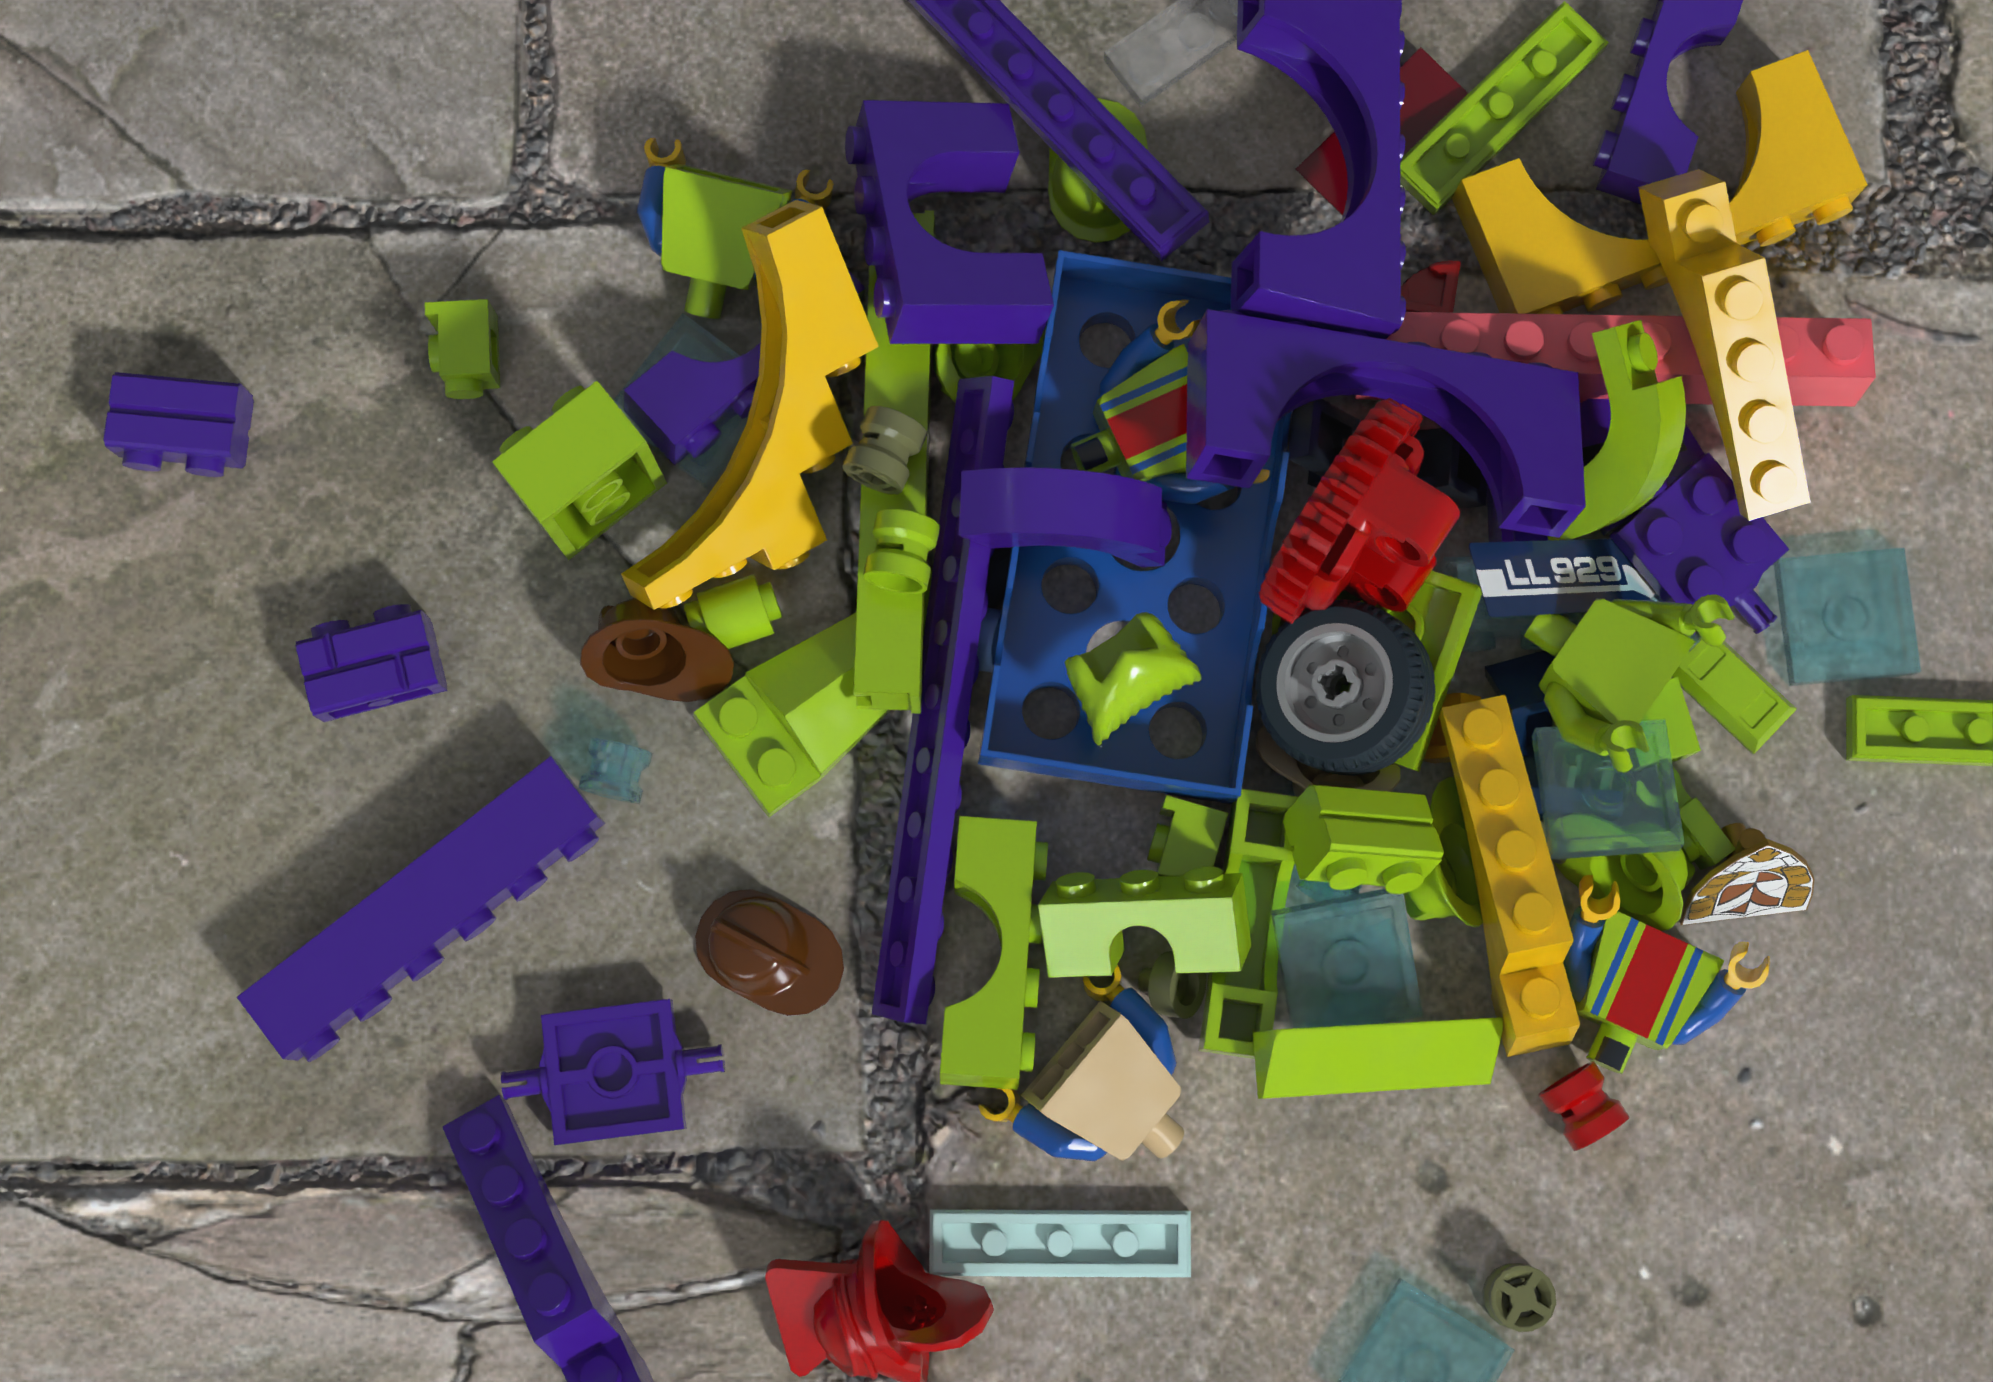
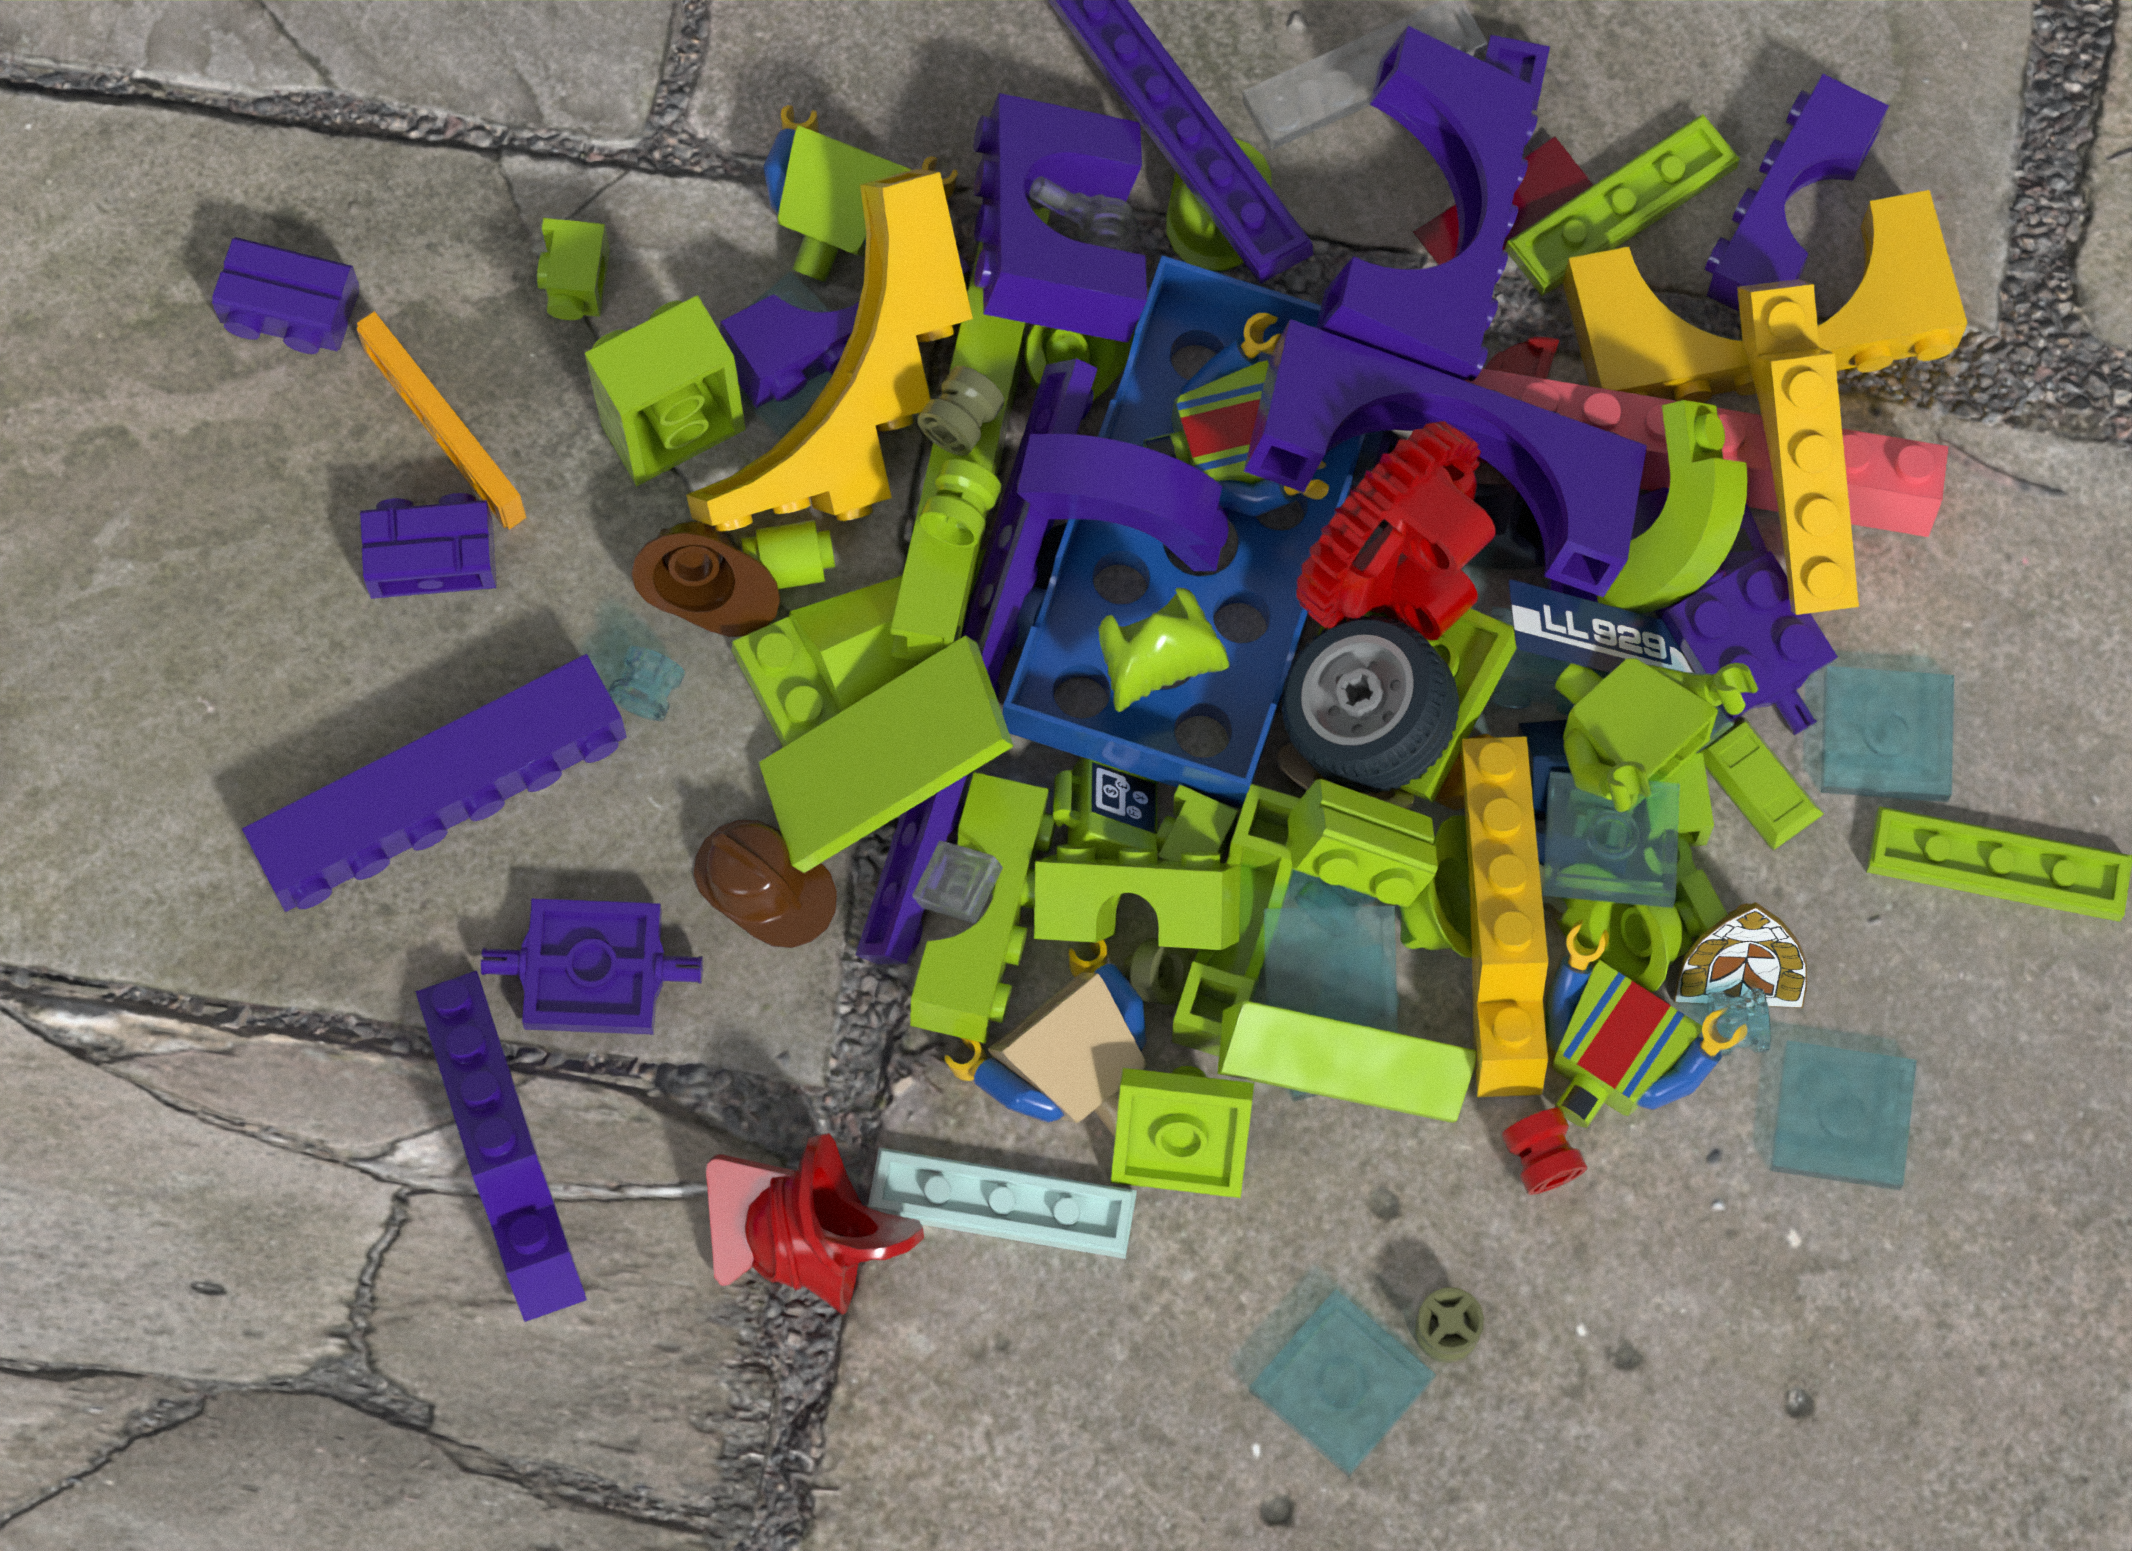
camera: 10 degrees right, 10 degrees down
(359, 529) = (440, 421): none -> light orange tile
(870, 815) = (885, 754): none -> lime tile
(964, 938) = (957, 881): none -> clear tile
(986, 211) = (1099, 218): none -> clear plate
(1096, 829) = (1106, 808): none -> lime piece
(1228, 1149) = (1182, 1131): none -> lime tile
(1763, 933) = (1745, 1009): none -> clear light blue wheel
(1865, 1015) = (1843, 1115): none -> clear light blue tile

